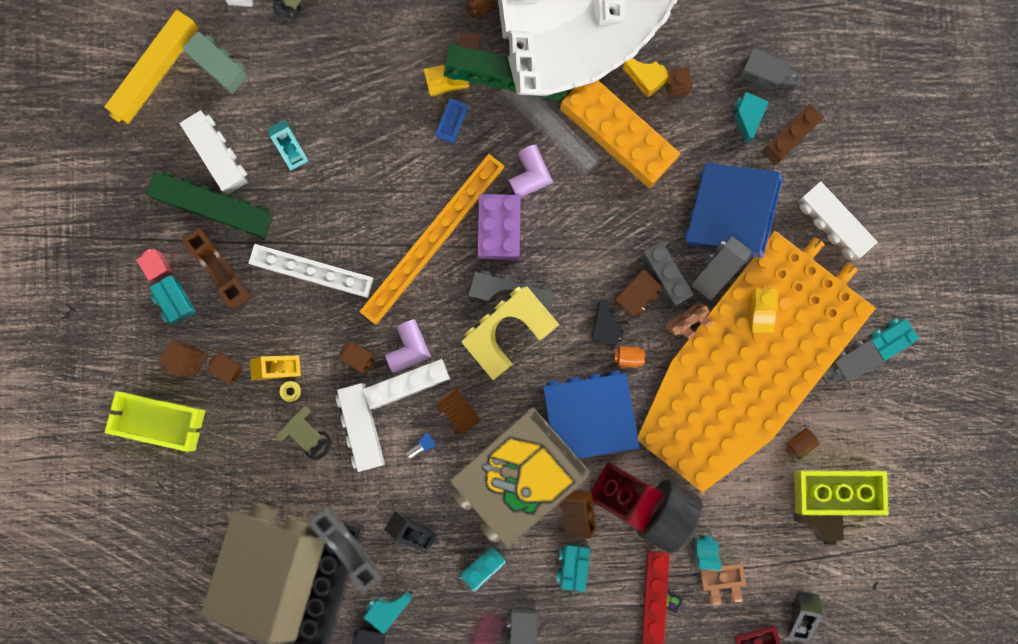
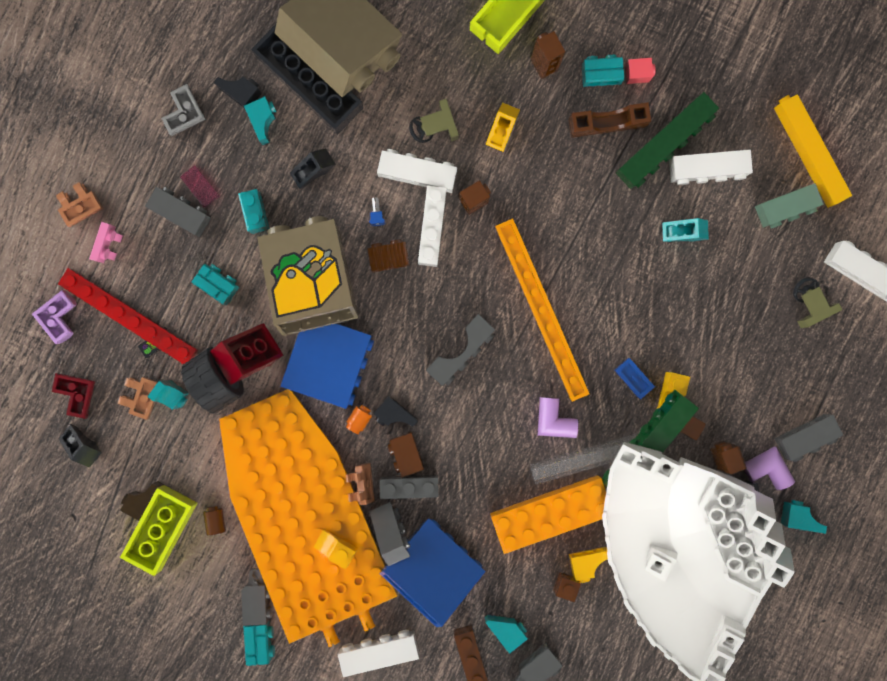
camera: 115 degrees right, 5 degrees up
(225, 368) = (523, 86): reddish brown brick -> none
(284, 394) = (477, 124): light yellow plate -> none
(311, 271) = (567, 196): white plate -> none
(337, 536) = (306, 112): dark grey arch -> none
(414, 348) = (456, 245): lavender brick -> none
(482, 340) = (444, 353): light yellow arch -> none
(499, 227) = (522, 369): medium lavender brick -> none
(578, 514) = (252, 309): reddish brown brick -> none

